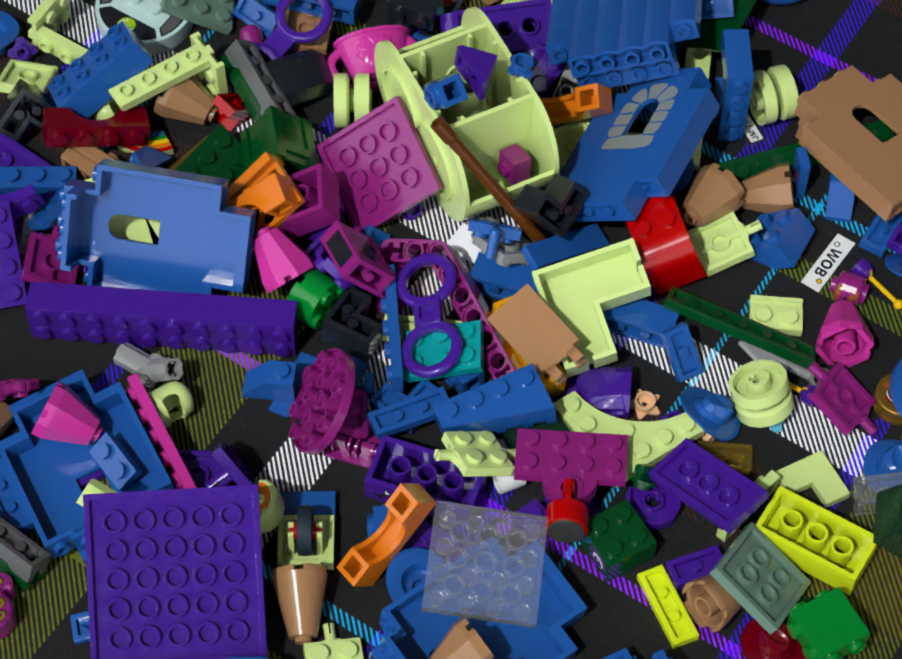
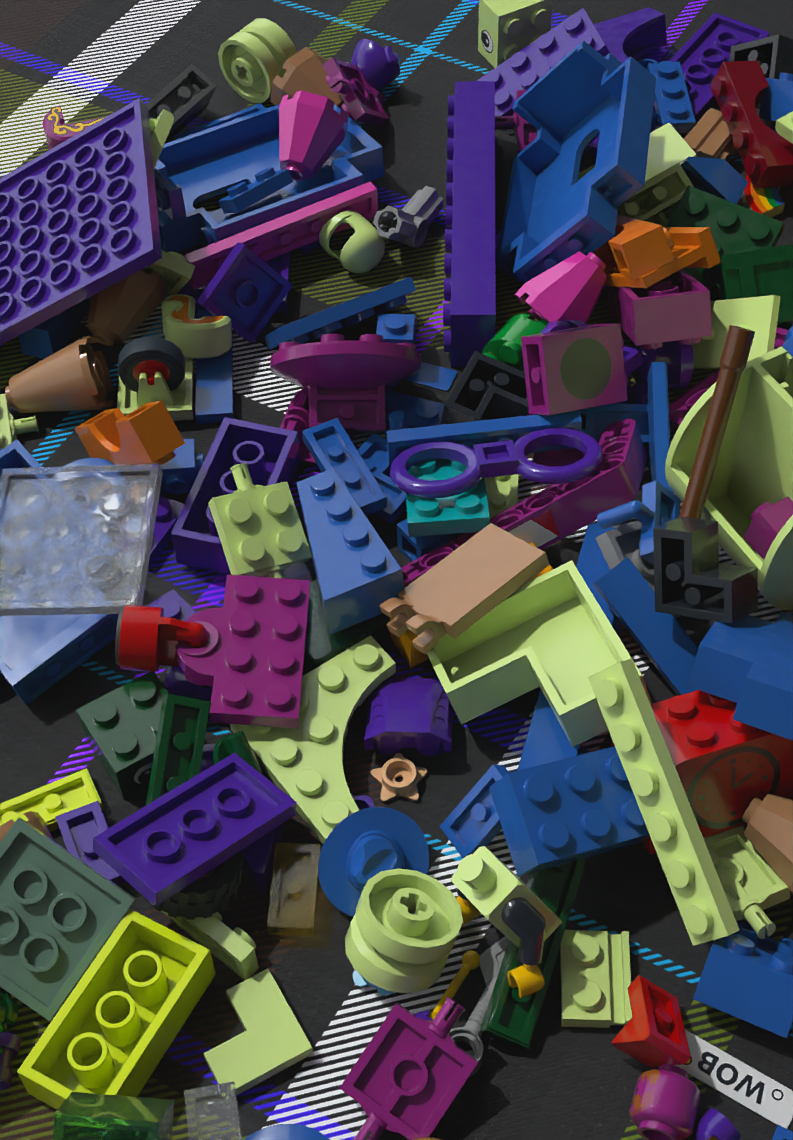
camera: 90 degrees right, 5 degrees down
(254, 413) = (349, 312): none -> blue plate
(342, 153) = (750, 313): none -> yellowish green piece
(399, 227) = (658, 421): none -> blue tile
(654, 505) = (178, 744): none -> dark green plate
(698, 294) = (567, 810): none -> blue brick
(704, 244) = (663, 803): none -> yellowish green plate
(753, 335) = (512, 907): none -> torso
(815, 282) = (656, 1029): none -> red slope
(844, 336) = (556, 1082): dark pink cone -> none

